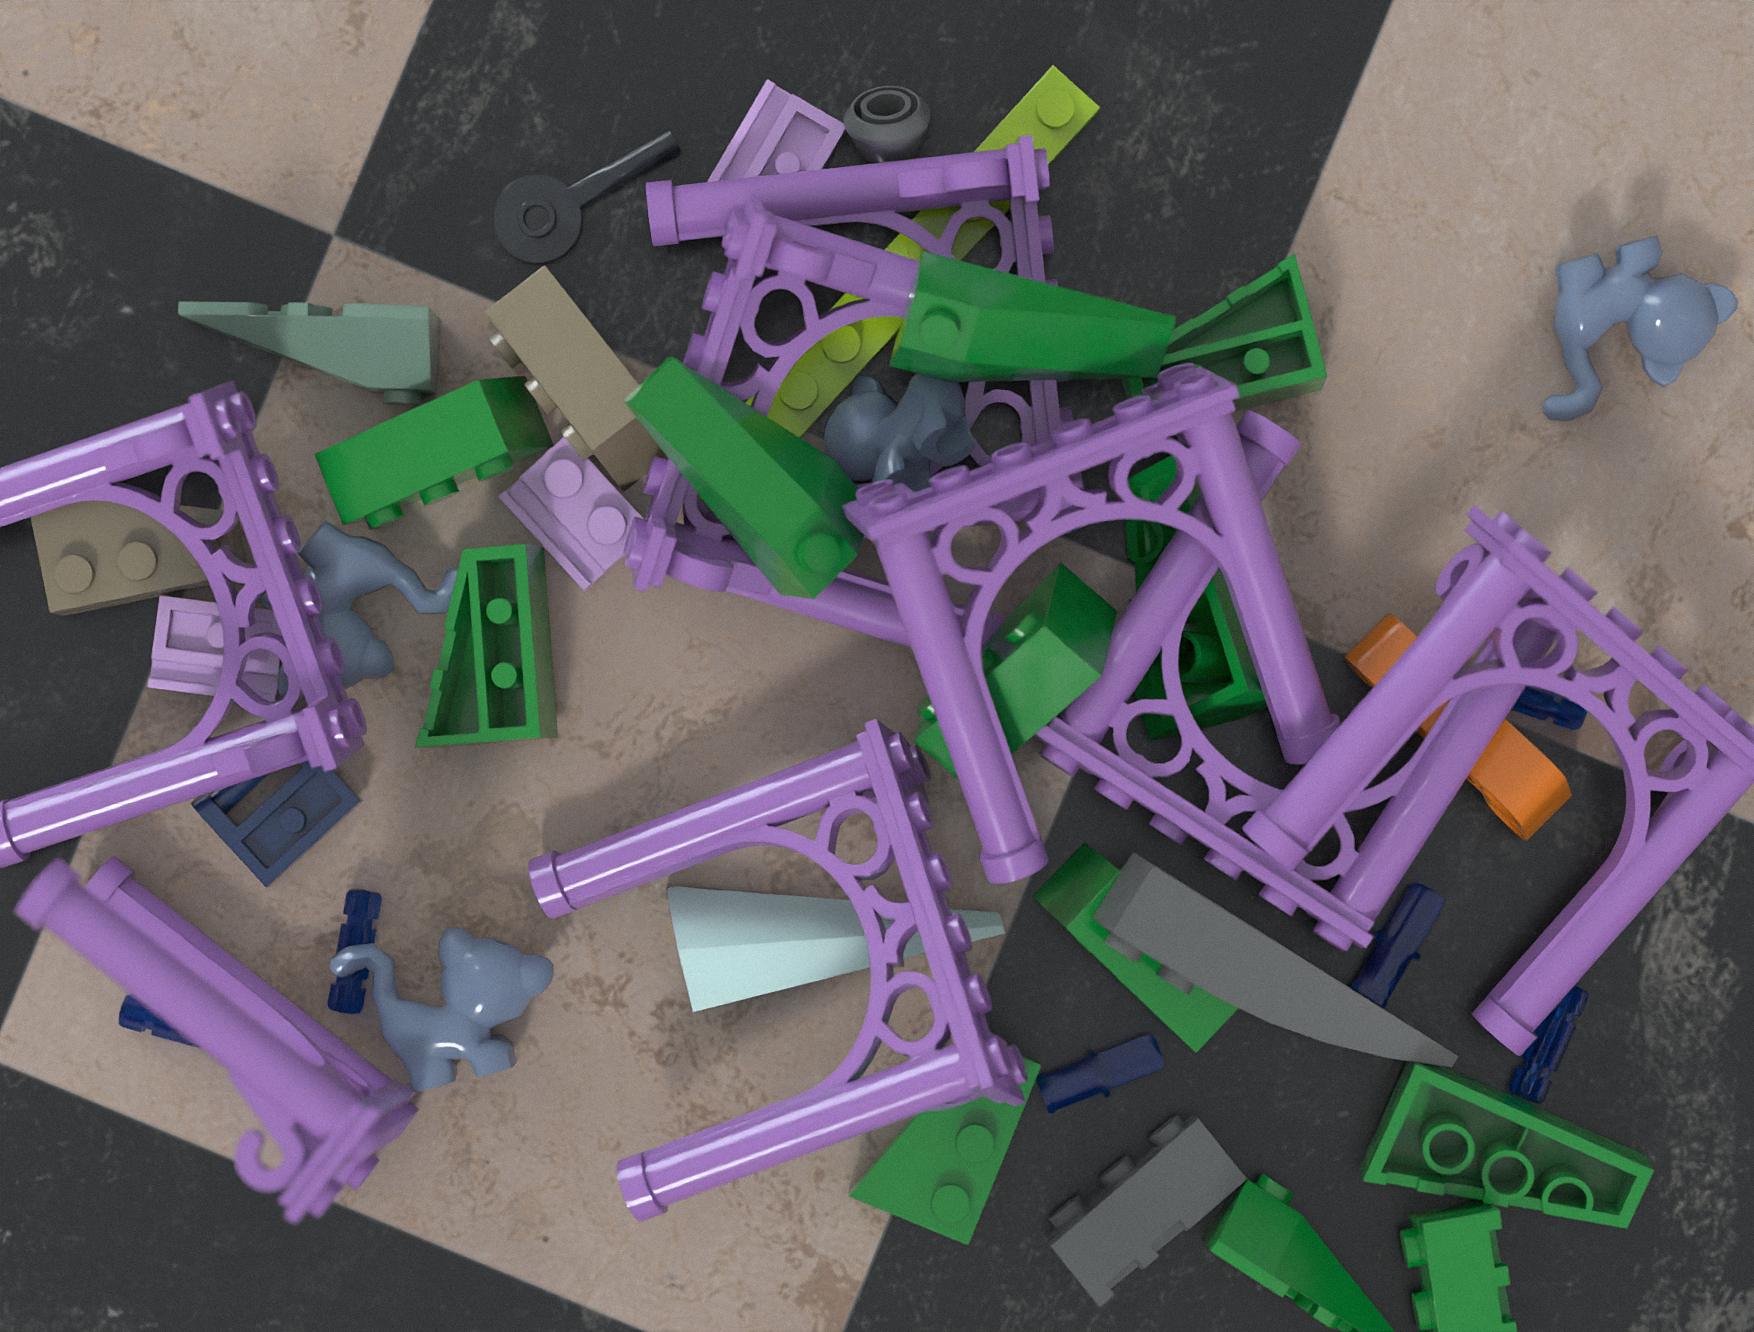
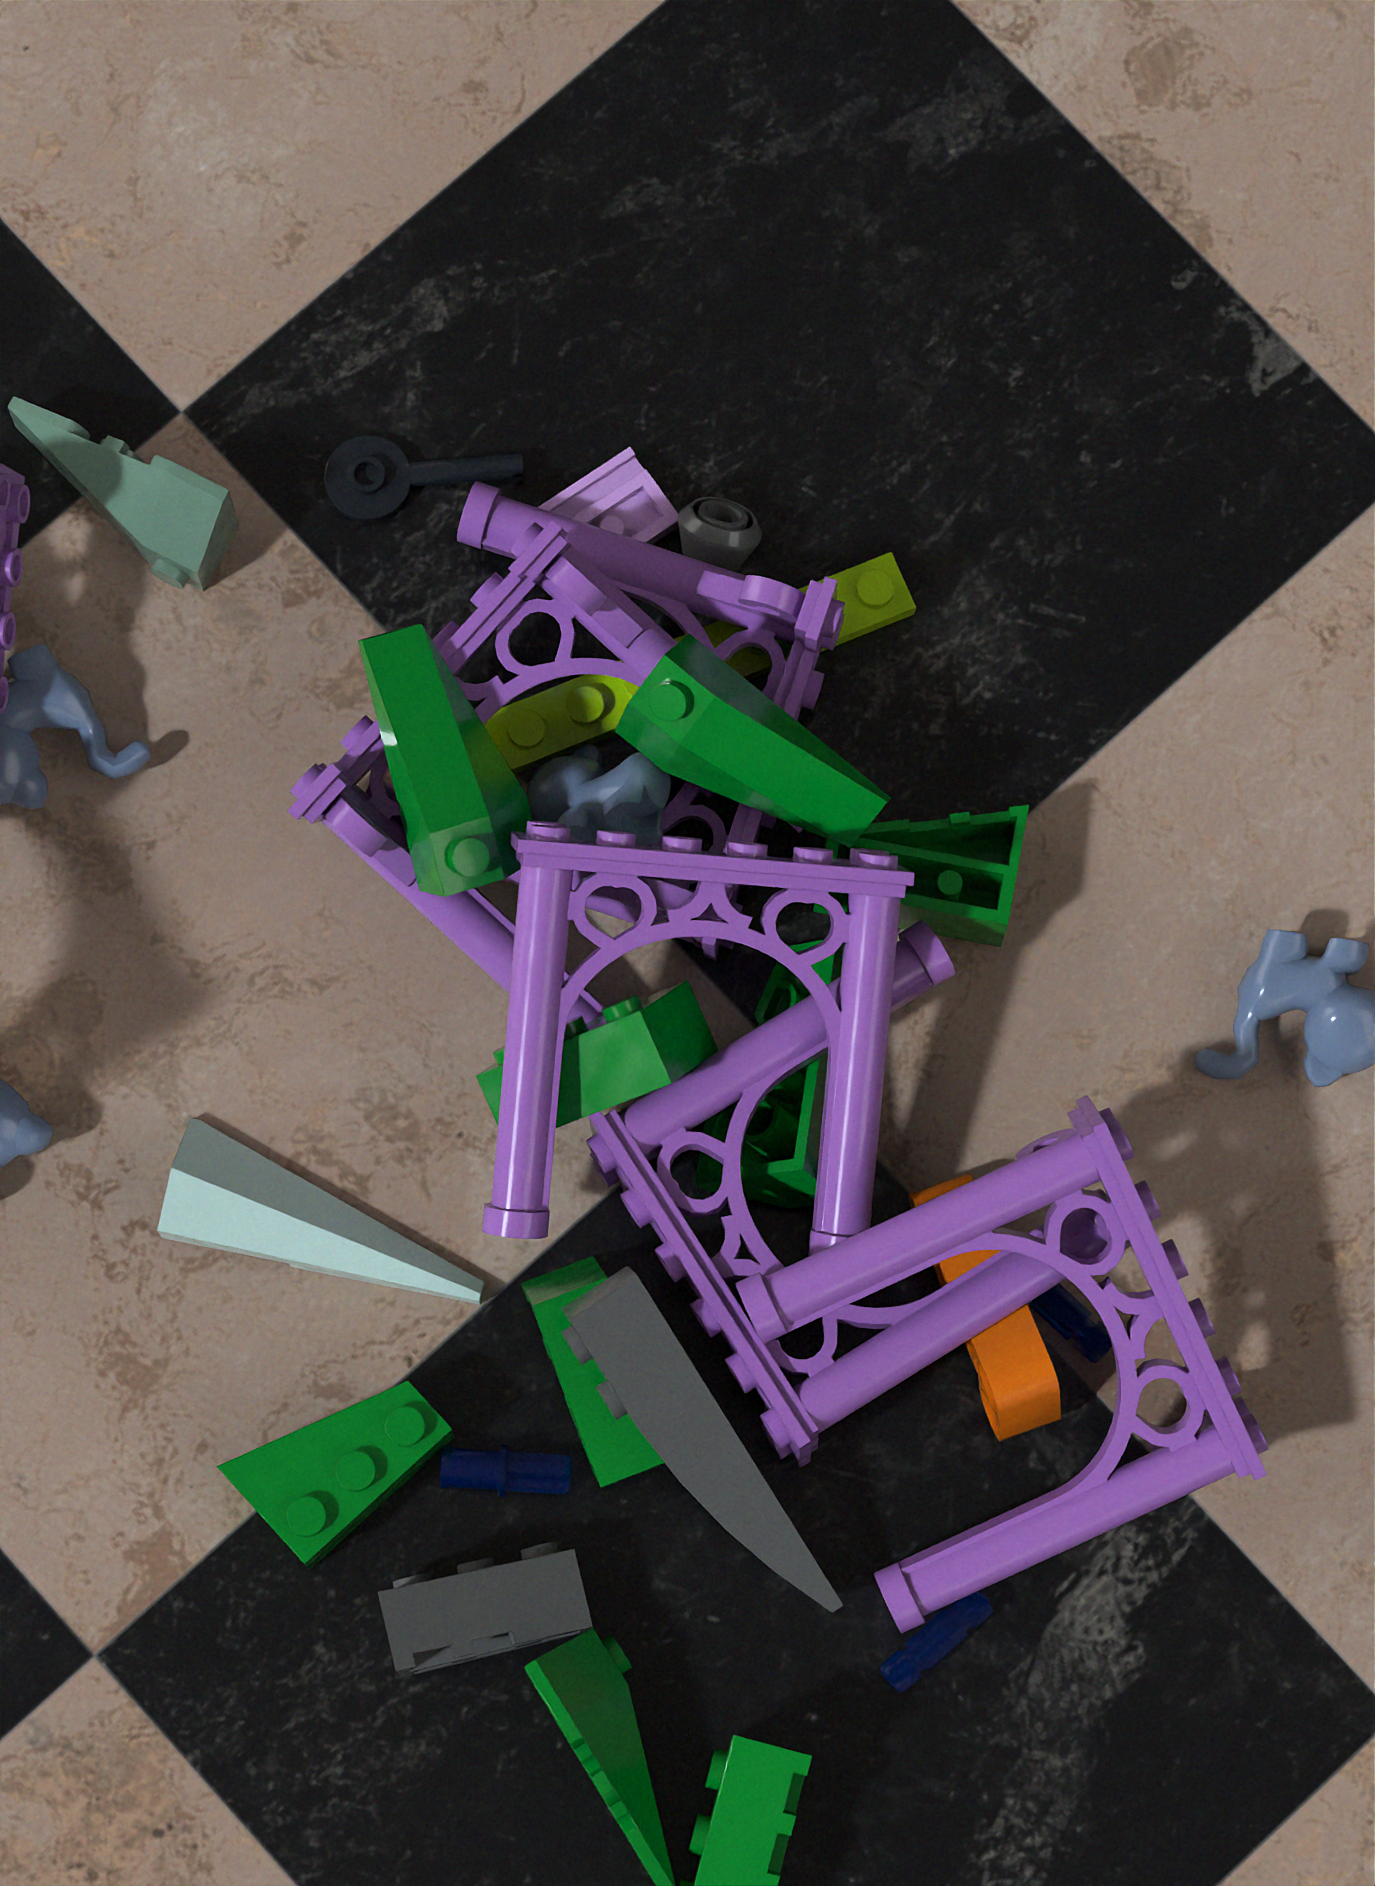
camera: 25 degrees right, 10 degrees down
(433, 450) = (175, 628): green wedge -> none
(495, 655) = (139, 833): green wedge -> none
(572, 512) = (270, 742): lavender plate -> none
(574, 373) = (329, 615): dark tan wedge -> none
(936, 1078) = (410, 1090): medium lavender arch -> none
(1398, 944) = (838, 1480): clear blue axle -> none
(1491, 1147) = (831, 1703): green wedge -> none

